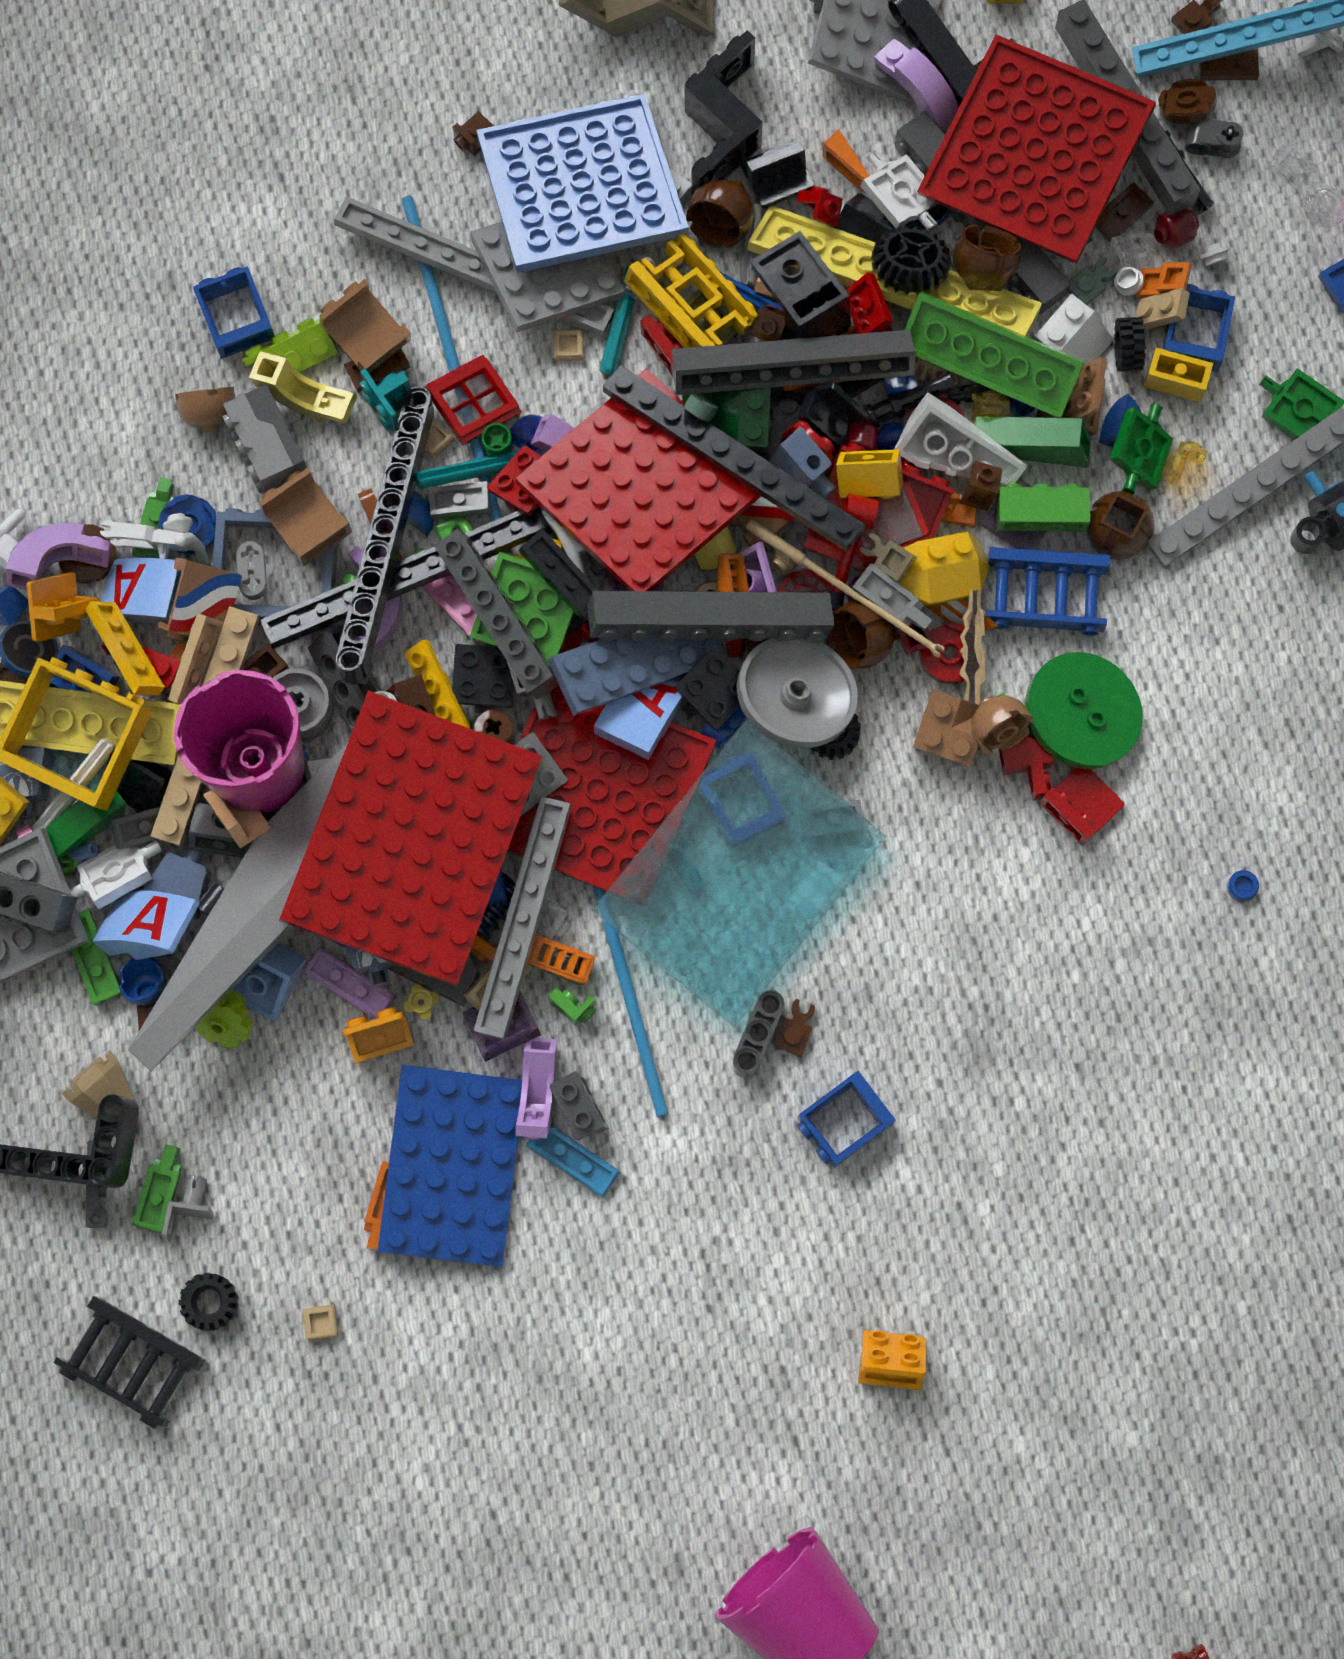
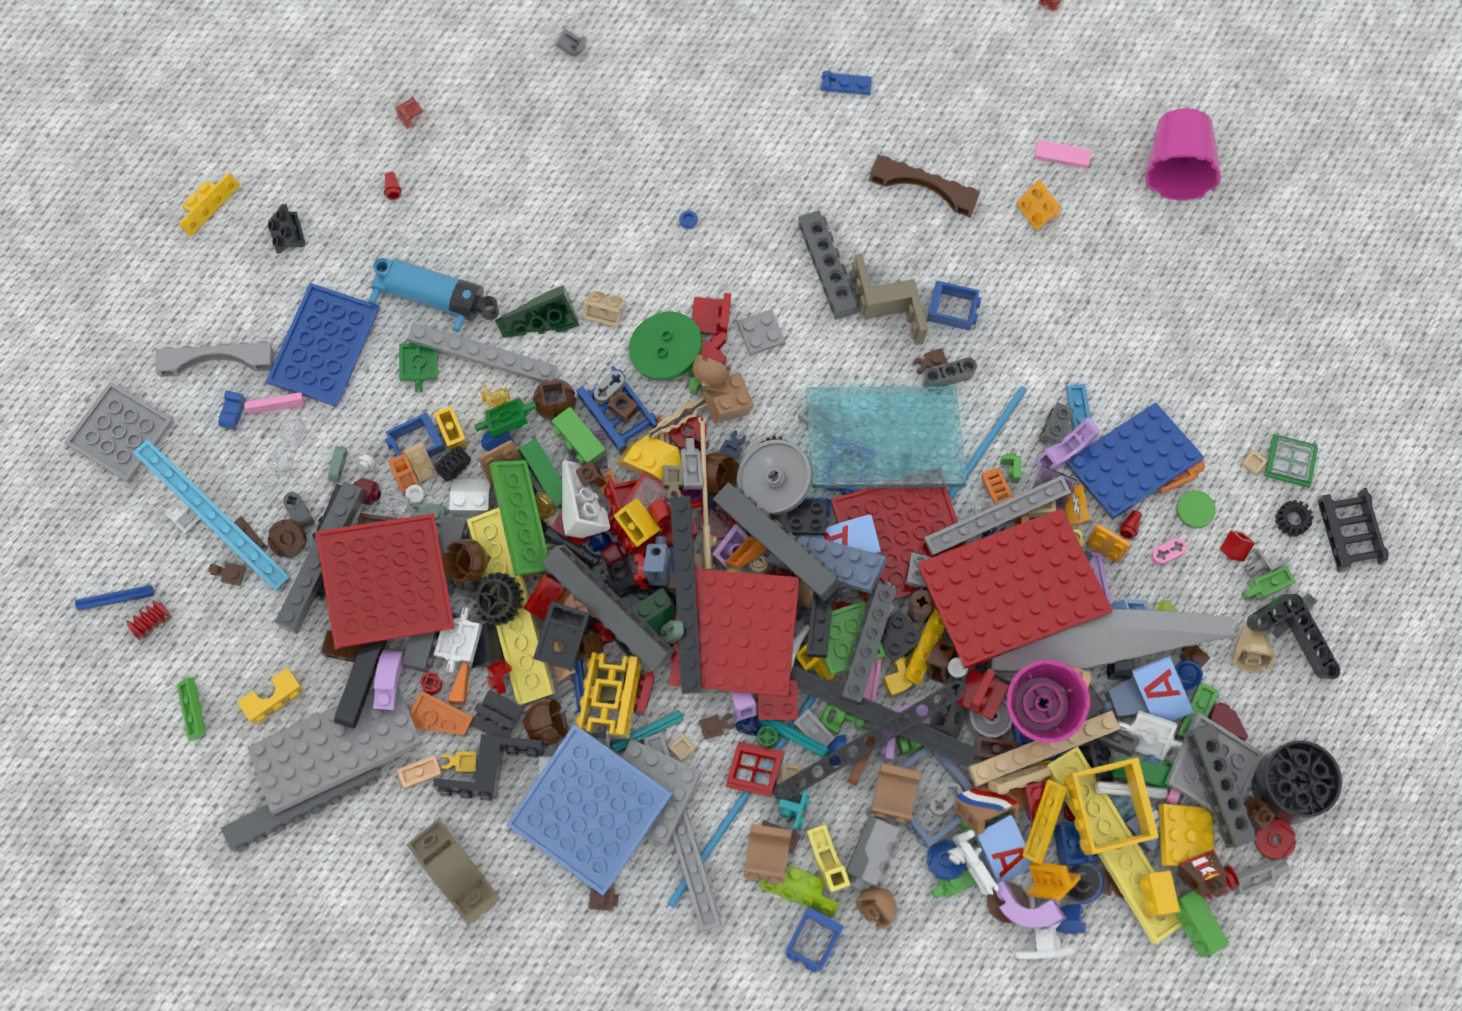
camera: 135 degrees left, 5 degrees down
(51, 978) = (1227, 719): none -> dark red slope
(238, 1195) = (1237, 545): none -> red panel
(281, 1374) = (1291, 460): none -> clear piece
(297, 1104) = (1167, 548): none -> bright pink beam
(325, 706) = (983, 693): none -> red bracket
(327, 1189) = (1196, 509): none -> bright green tile
(377, 1088) = (1130, 526): none -> red cone
(438, 634) = (896, 683): none -> yellow brick
(456, 1040) = (1076, 508): none -> light orange slope
(562, 397) = (713, 727): none -> reddish brown plate
(759, 99) = (464, 762): none -> yellow plate
(783, 49) = (419, 772): none -> light nougat plate
(840, 109) = (436, 715): none -> orange wing
(874, 138) = (429, 686): none -> red wheel
(882, 683) = (732, 448): none -> dark blue plate
(920, 1035) = (889, 299): none -> dark tan bracket
(944, 1467) = (1062, 154): none -> bright pink tile
(989, 1260) = (890, 172): none -> reddish brown arch
(1010, 849) = (761, 332): none -> light grey plate
(1031, 597) = (625, 414): none -> reddish brown brick
(1073, 595) = (606, 383): none -> light grey beam
(1110, 1025) = (816, 222): none -> dark grey brick
(1200, 680) = (603, 308): none -> tan bracket
(1239, 222) = (337, 464): none -> sand green beam
(1250, 608) = (544, 313): none -> dark green wedge
(1283, 1261) = (846, 83): none -> blue plate

